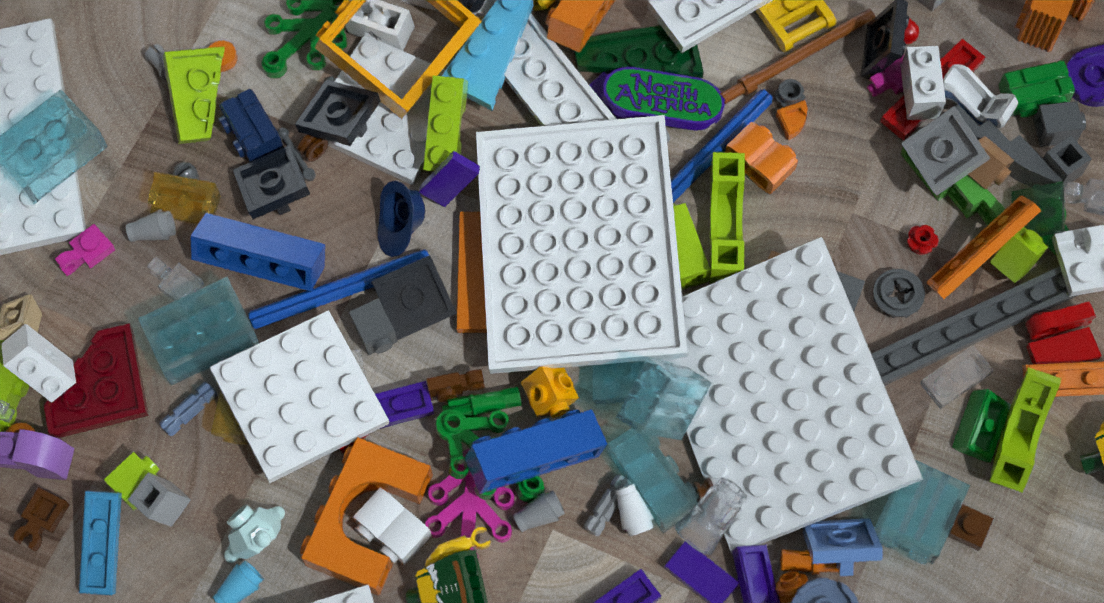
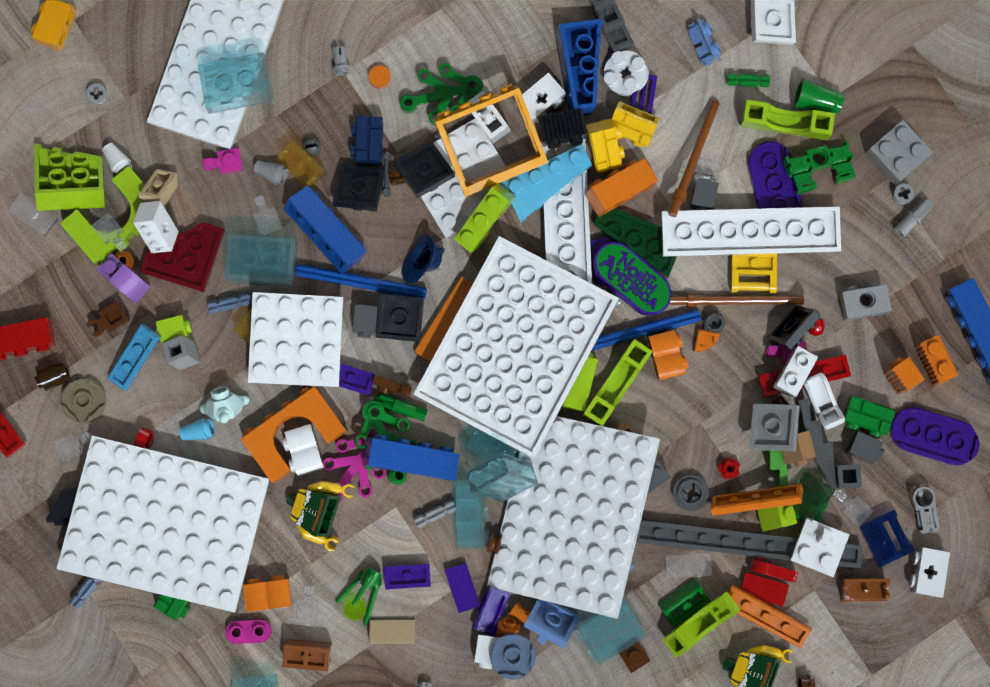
camera: 30 degrees right, 15 degrees up
(193, 89) = (346, 95): lime wing -> none
(449, 179) = (465, 255): dark purple tile -> none
(540, 511) = (395, 494): light grey cone -> none
(549, 391) = (442, 427): light orange brick -> none
(633, 511) = (446, 528): white cone -> none
(711, 516) = (486, 561): clear plant -> none

